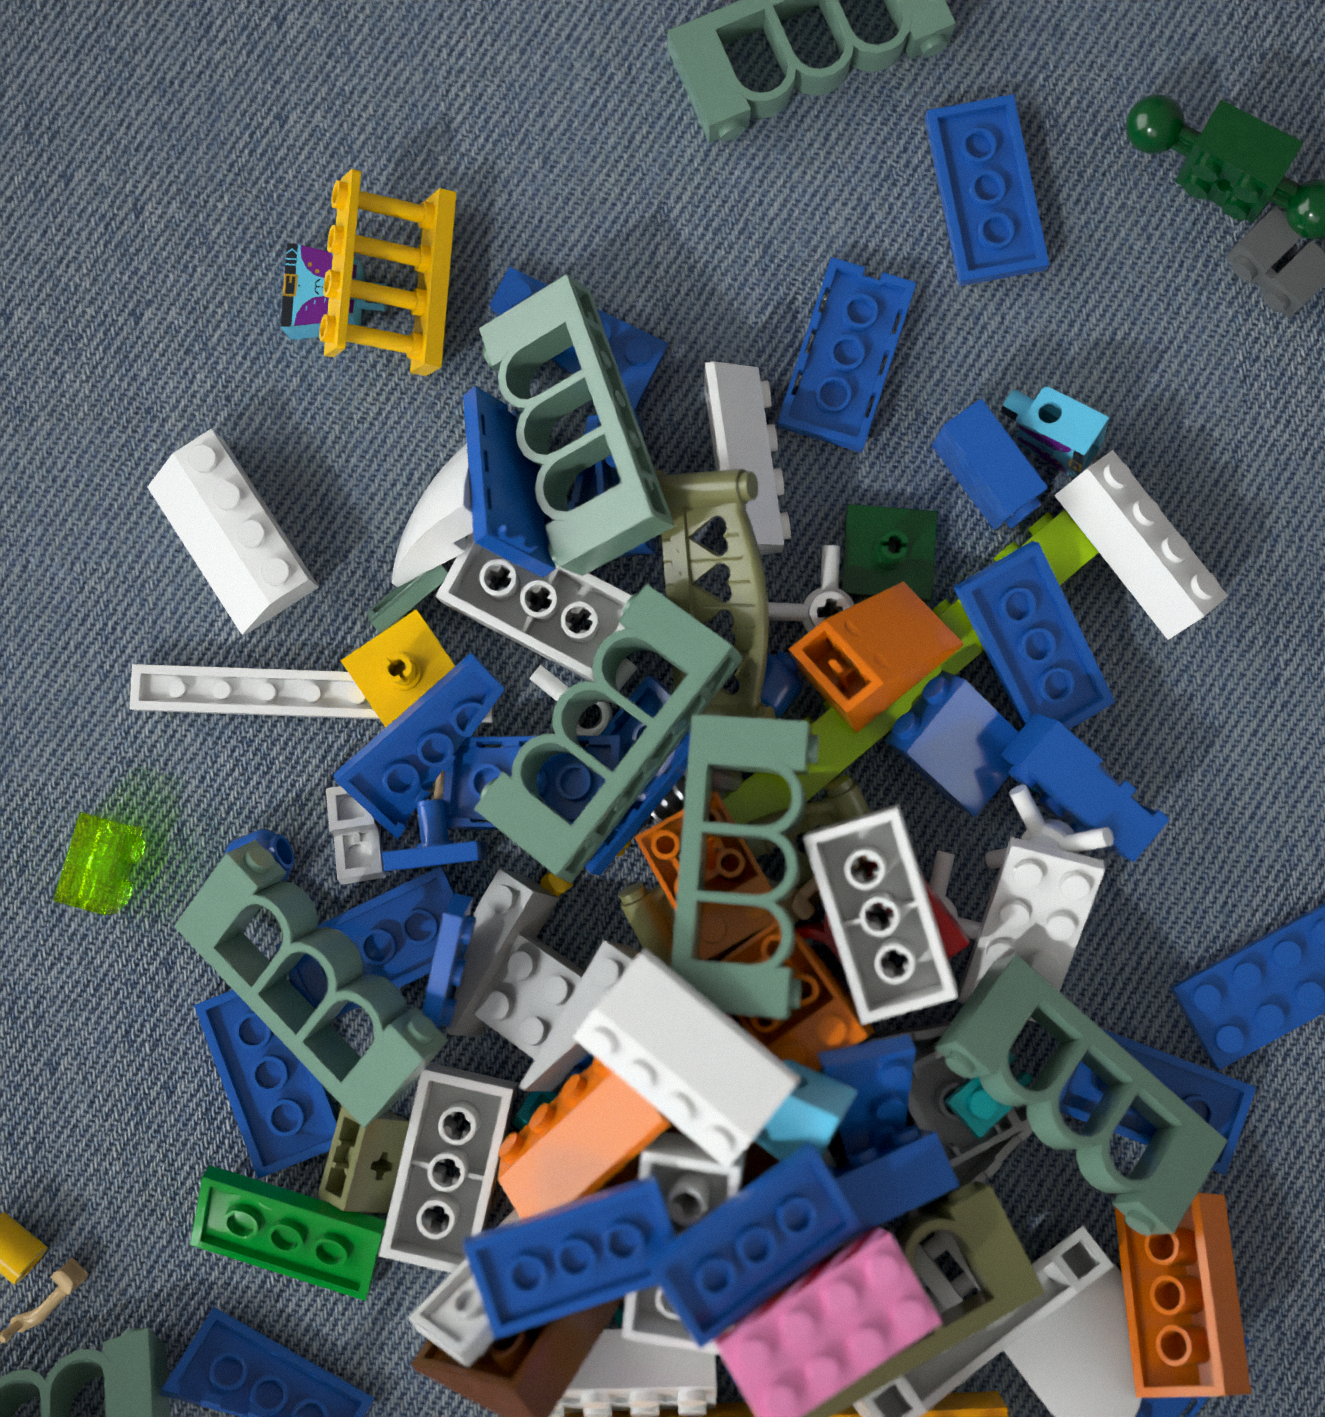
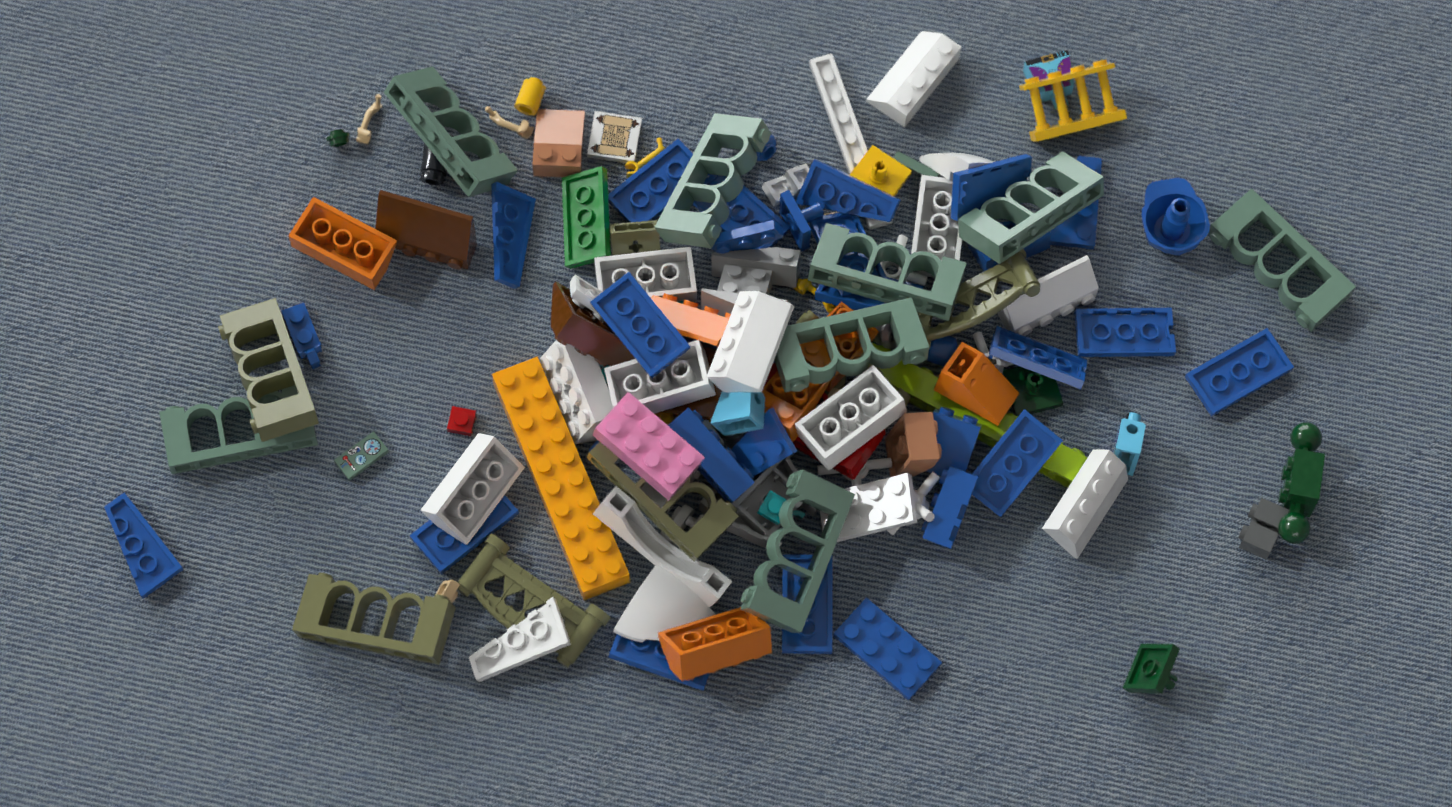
camera: 60 degrees right, 15 degrees down
(99, 864) = (729, 73): clear neon green brick -> none
(118, 1226) = (558, 143): none -> nougat slope
(146, 1117) = (614, 137): none -> tile
(214, 1081) = (636, 166): none -> yellow piece
(674, 183) = (1174, 216): none -> blue piece
(753, 1245) = (676, 400): blue plate -> none
(852, 524) = (1038, 357): none -> blue piece
(956, 808) = (913, 444): none -> nougat slope
(989, 466) = (1094, 414): blue brick -> none

